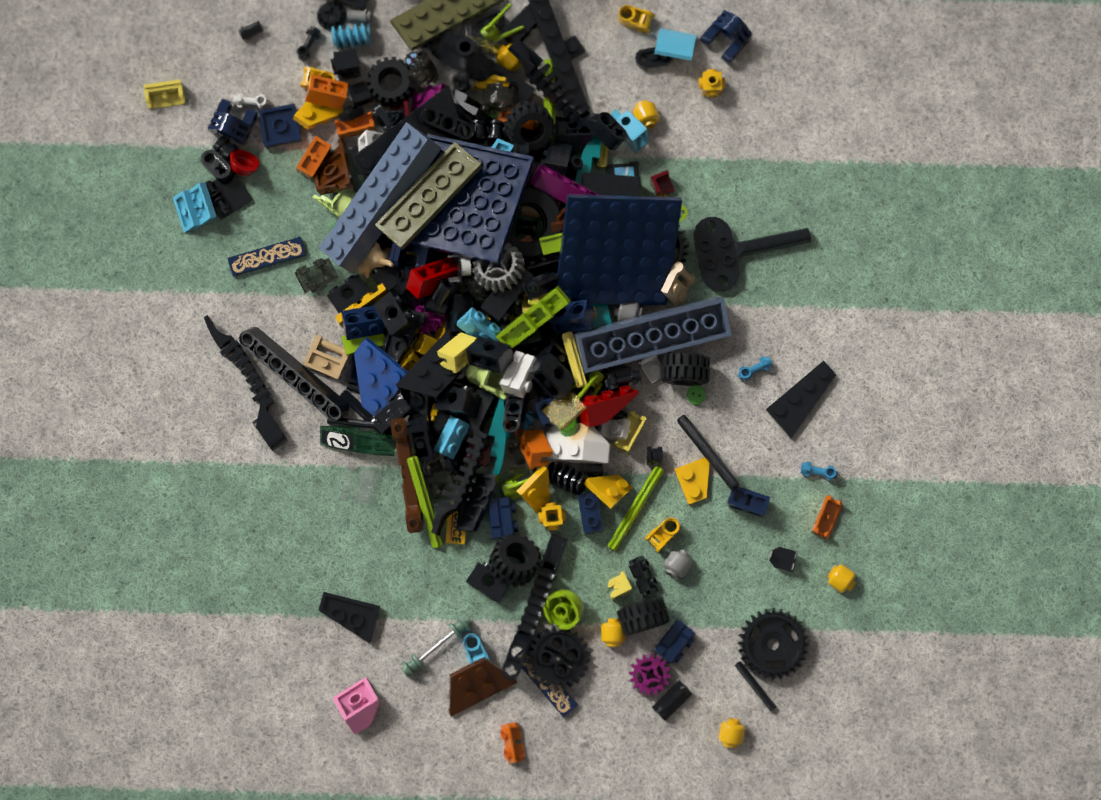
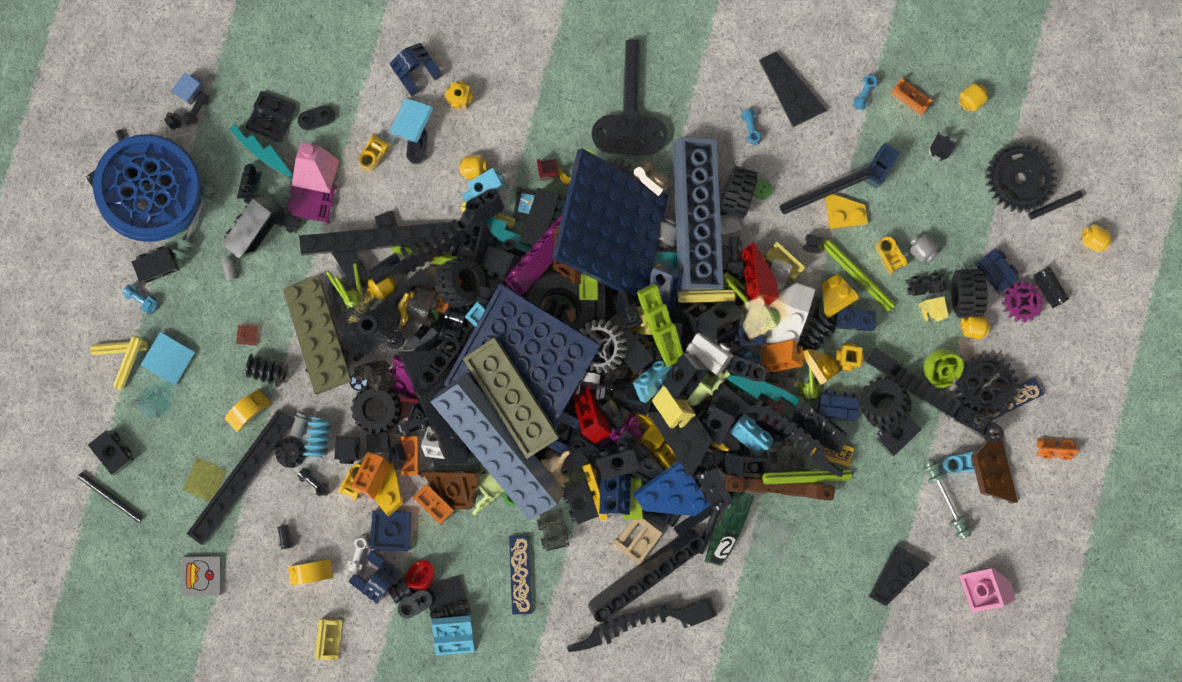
camera: 75 degrees left, 5 degrees up
(223, 61) = (310, 572): none -> yellow brick

